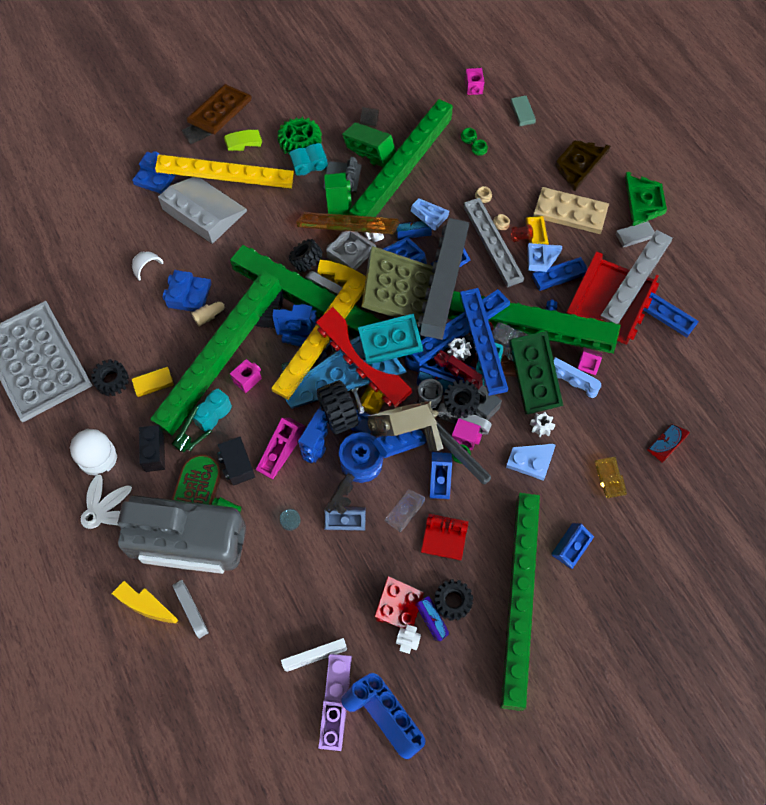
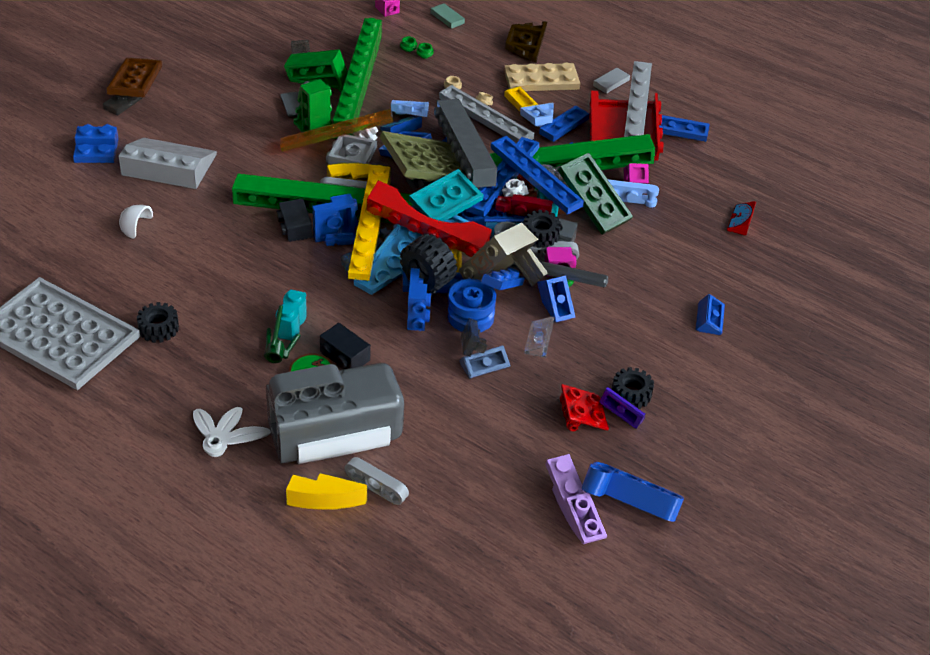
camera: 30 degrees left, 20 degrees down
(93, 451) = (183, 383): white tile -> none
(151, 448) = (246, 363): black brick -> none
(152, 381) = (207, 314): yellow tile -> none
(186, 291) = (196, 231): blue plate -> none
(207, 313) = (231, 241): tan hinge -> none
(216, 353) = (268, 266): green brick -> none
(224, 171) = (175, 123): yellow plate -> none
(238, 140) = (173, 97): lime slope -> none
(248, 382) = (308, 278): dark pink brick -> none
(280, 446) = (383, 322): dark pink slope -> none
(290, 519) = (430, 380): clear light blue tile -> none
(299, 133) = (237, 80): green gear -> none
(305, 255) = (309, 166): black tyre -> none
(308, 159) = (259, 95): teal brick -> none
(314, 655) = (527, 474): white tile -> none
(408, 639) = (611, 429): white gear -> none
(444, 537) = (591, 344): red hinge -> none
(516, 233) = (510, 101): clear red bush -> none
(520, 603) = (696, 369): green brick -> none
(531, 460) = (631, 265): light blue wing -> none
(544, 419) = (624, 234): white gear -> none
(610, 478) = (713, 260): clear yellow slope -> none
(645, 199) = (603, 52): green wing -> none

